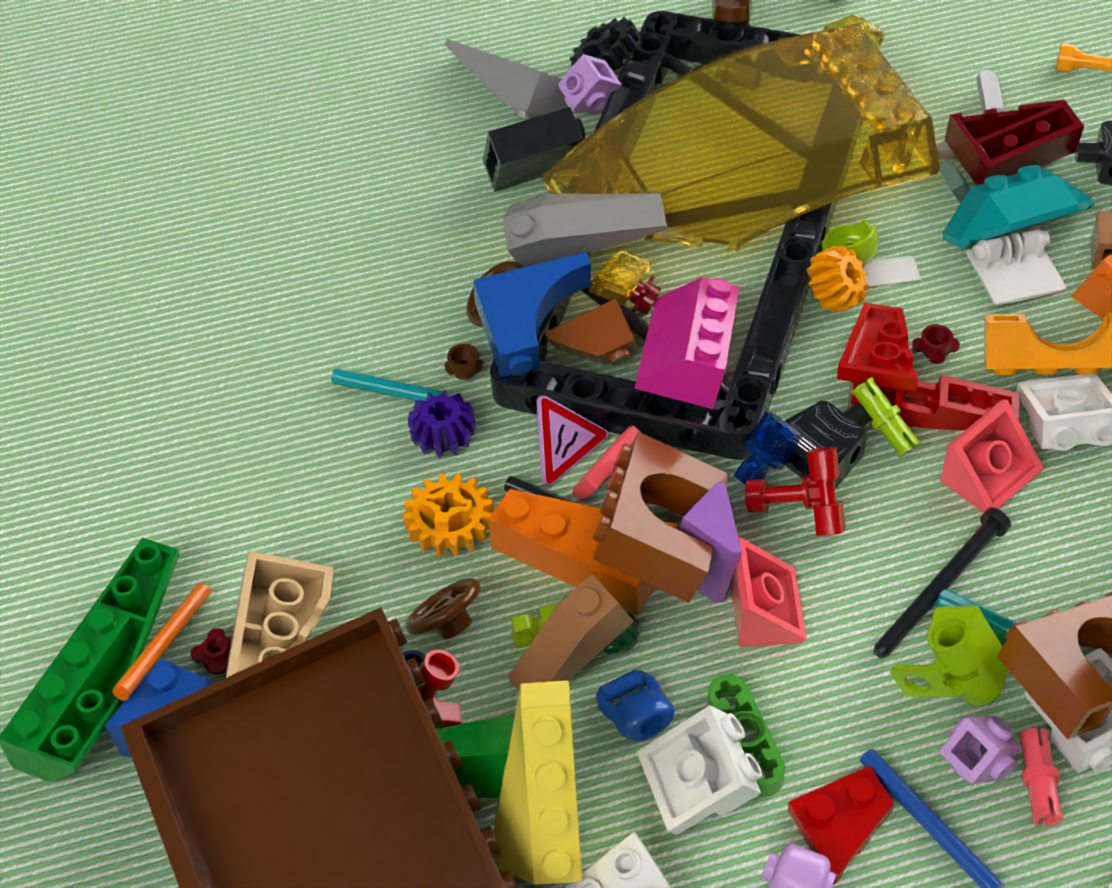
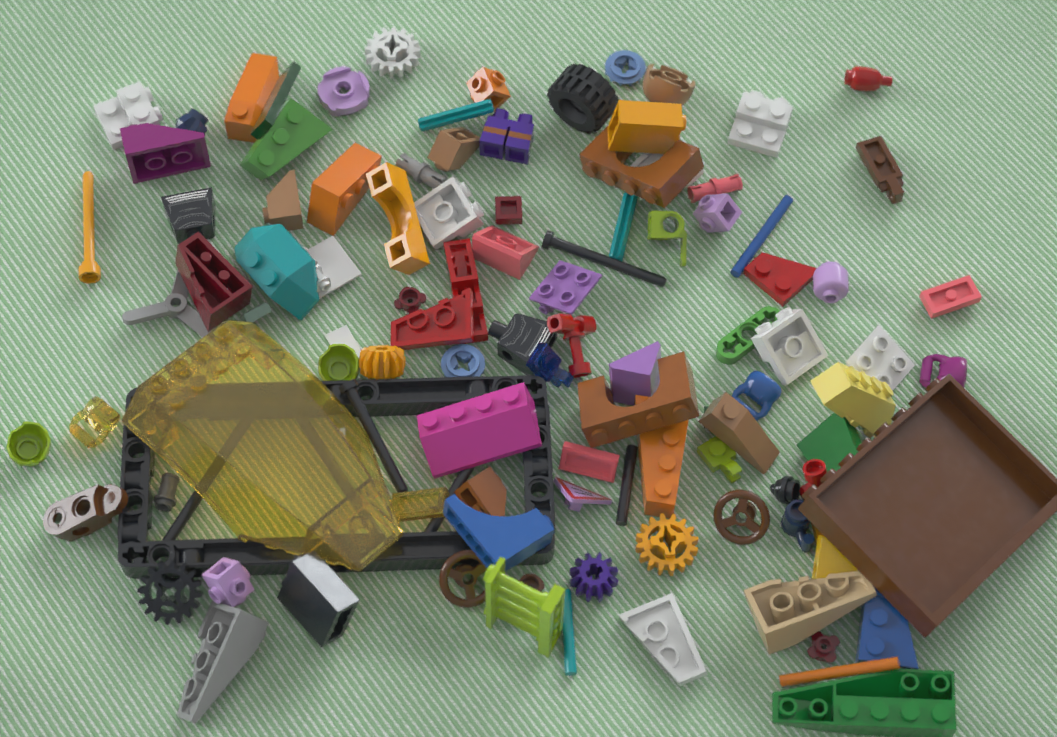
camera: 115 degrees left, 10 degrees up
(330, 481) = (666, 636): none -> white wing
(378, 300) = (524, 606): none -> lime fence
(467, 689) = (786, 489): none -> black plate
(578, 223) = (407, 527): light grey wedge -> none
(644, 296) = (430, 480): dark red plate -> none
(733, 249) = (350, 390): none -> black bar
(766, 599) = (670, 337): coral slope -> none
(820, 363) = (463, 353): none -> medium blue gear
(885, 417) = (493, 309): lime pin -> none
(895, 504) = (564, 288): none -> medium lavender hinge
(1061, 486) = (508, 210): none -> dark red plate

